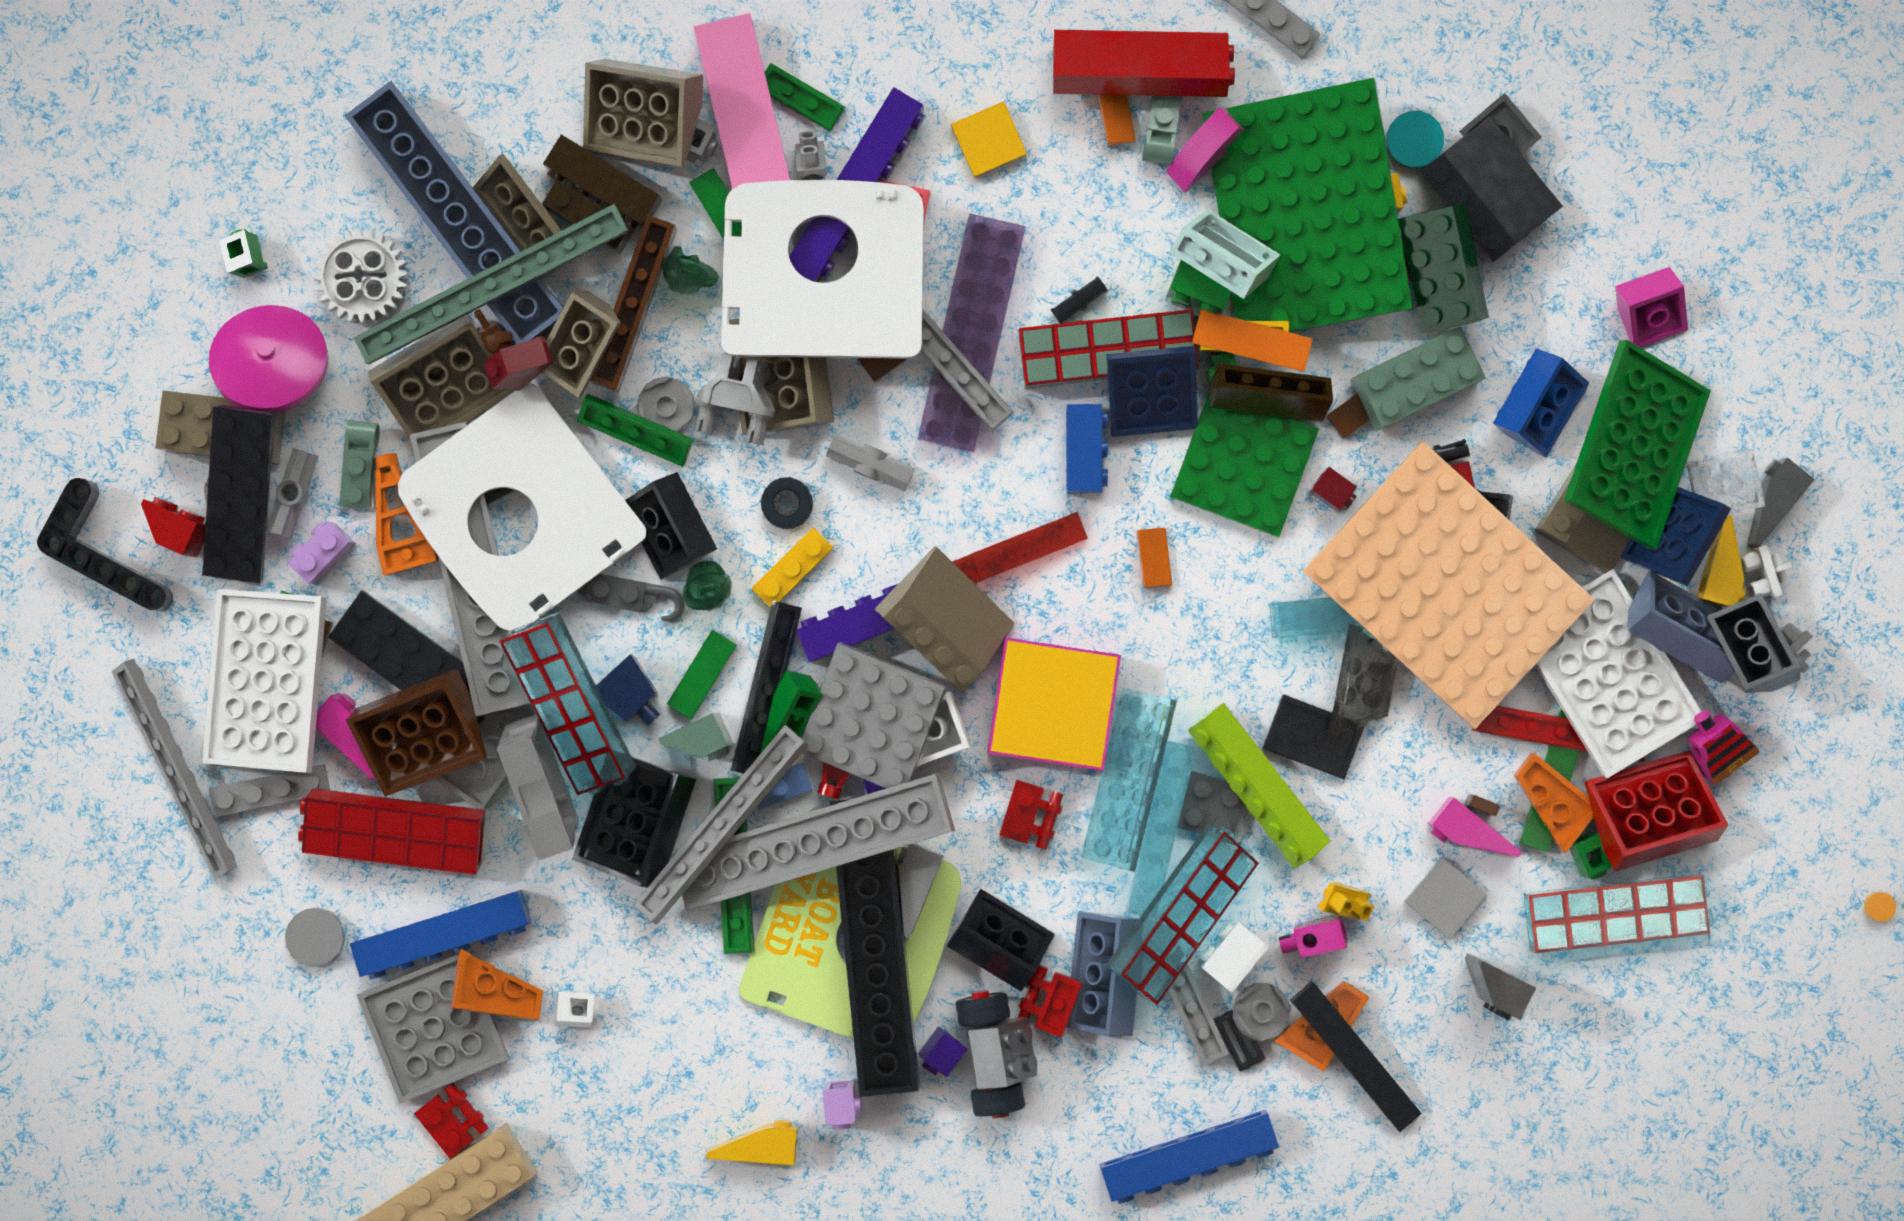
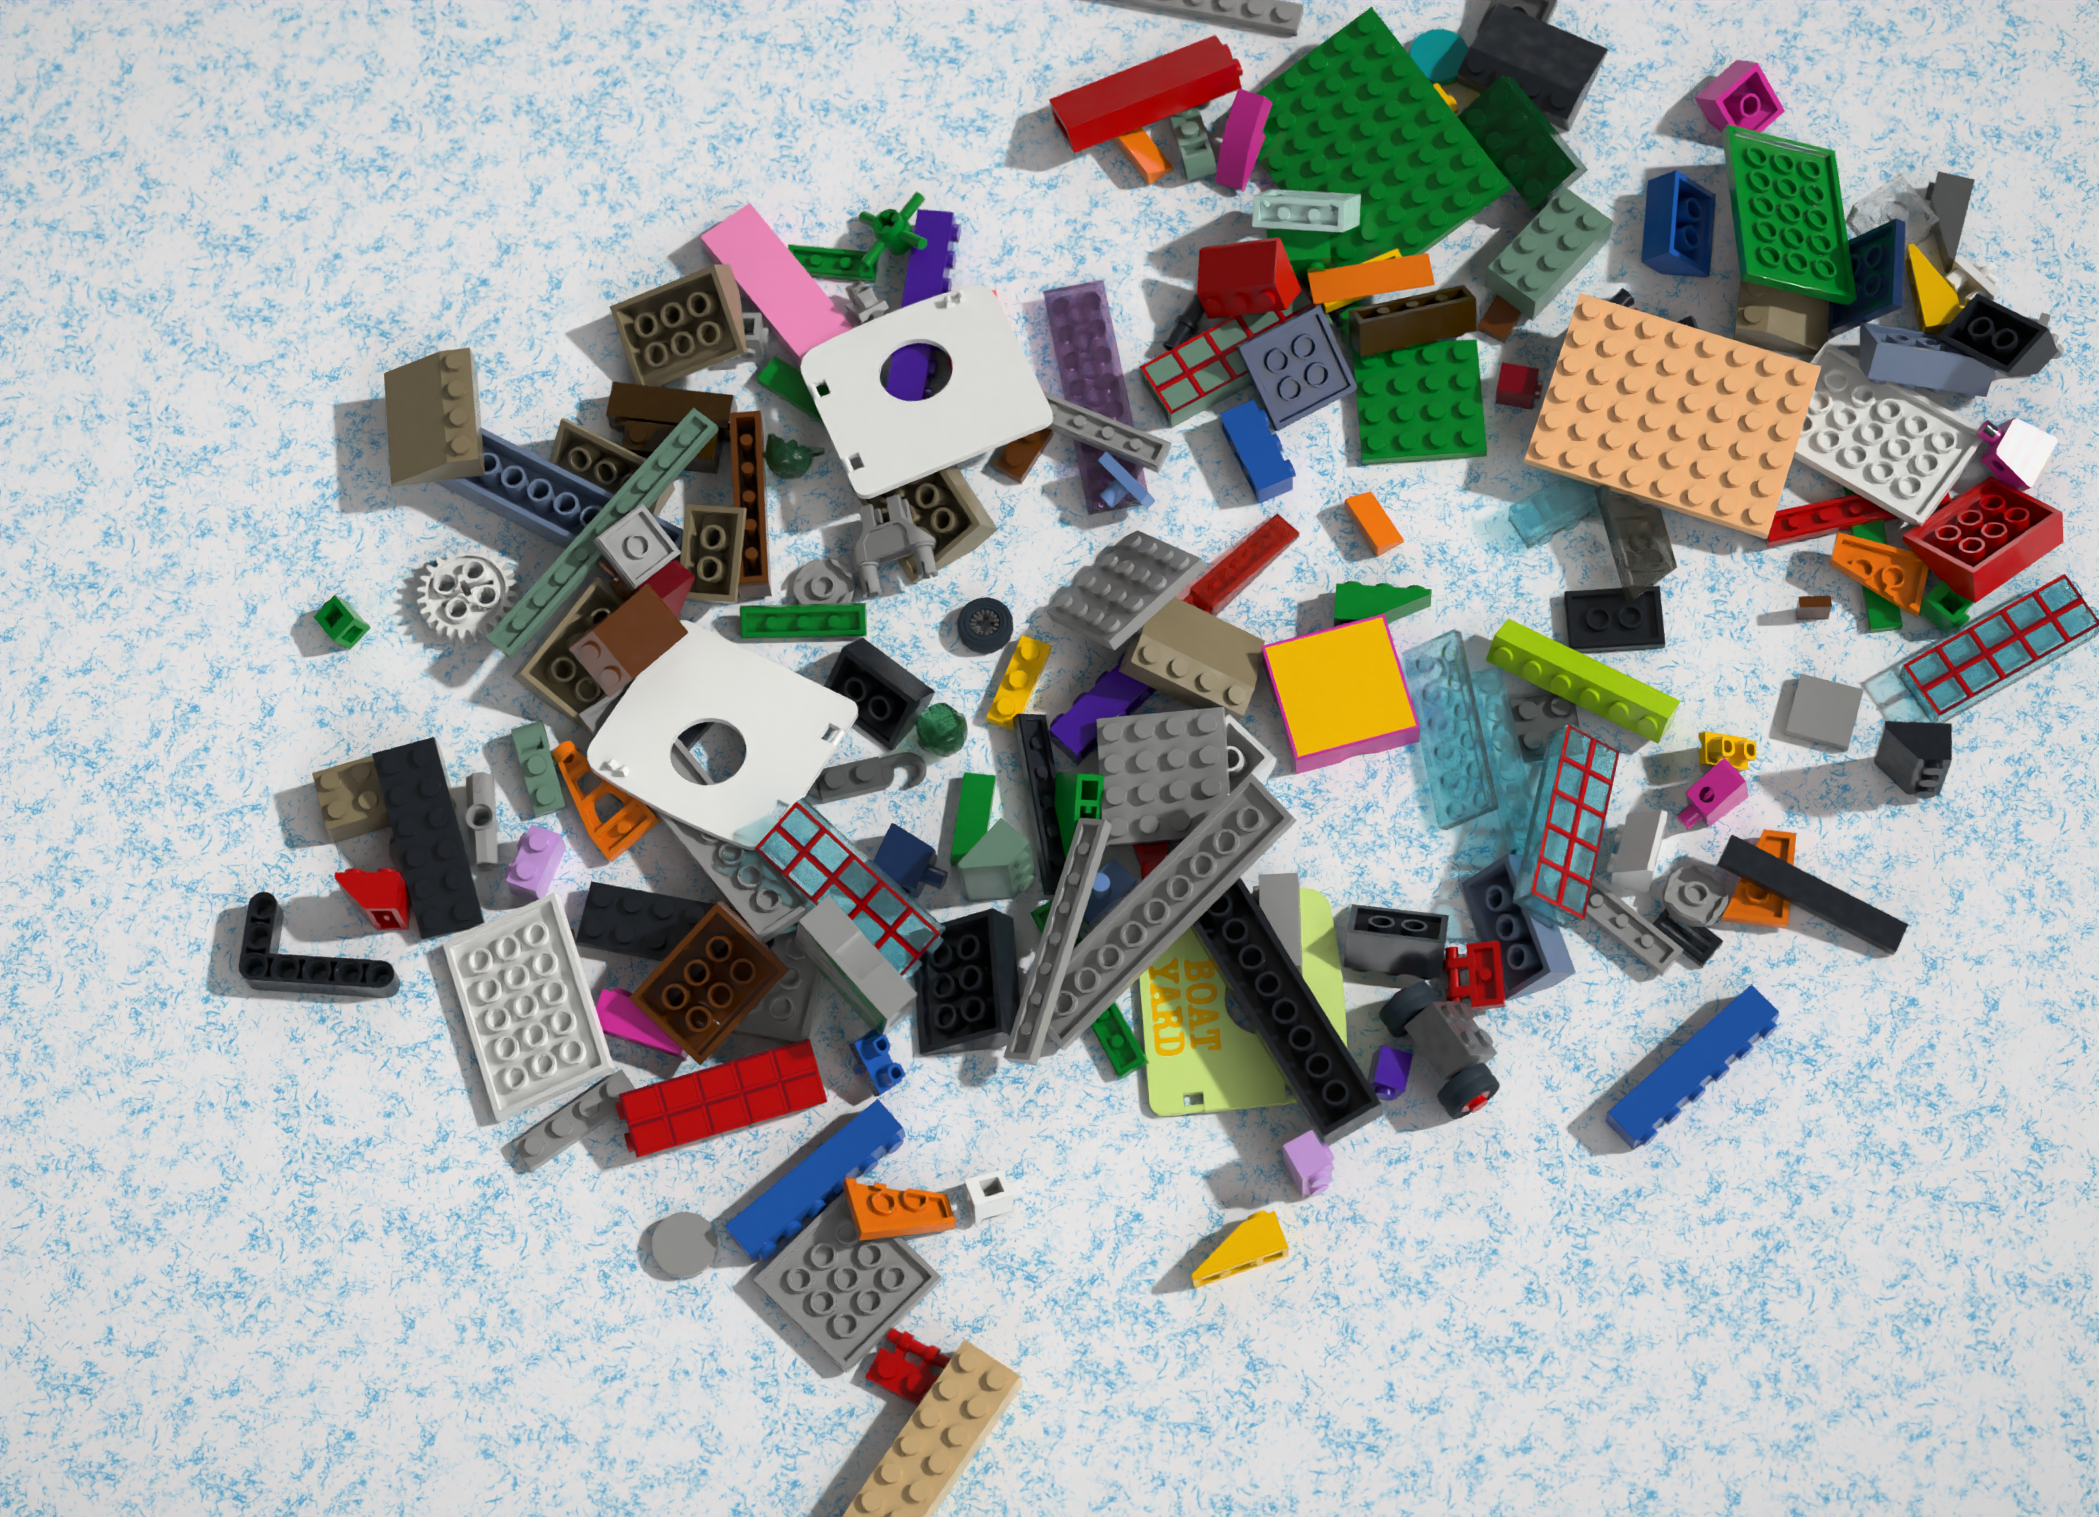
camera: 15 degrees left, 20 degrees down
(174, 768) = (469, 1138): light grey plate -> none
(268, 358) = (407, 701): dark pink dish -> none
(389, 107) = (434, 419): none -> dark tan slope
(471, 395) = (628, 640): none -> reddish brown slope
(513, 313) = (637, 546): none -> light grey tile
(528, 866) = (875, 1062): none -> blue hips
(863, 96) = (893, 231): none -> green bar
(870, 462) = (1051, 551): light grey piece -> none
(914, 537) = (1126, 589): none -> light grey plate
(956, 433) = (1122, 484): none -> medium blue tile
(988, 139) = (1031, 224): yellow tile -> none
(1022, 813) = (1358, 811): red plate -> none
(1112, 635) = (1361, 601): none -> green slope
(1143, 293) = (1245, 278): none -> red slope
(1463, 827) = (1812, 636): dark pink slope -> none

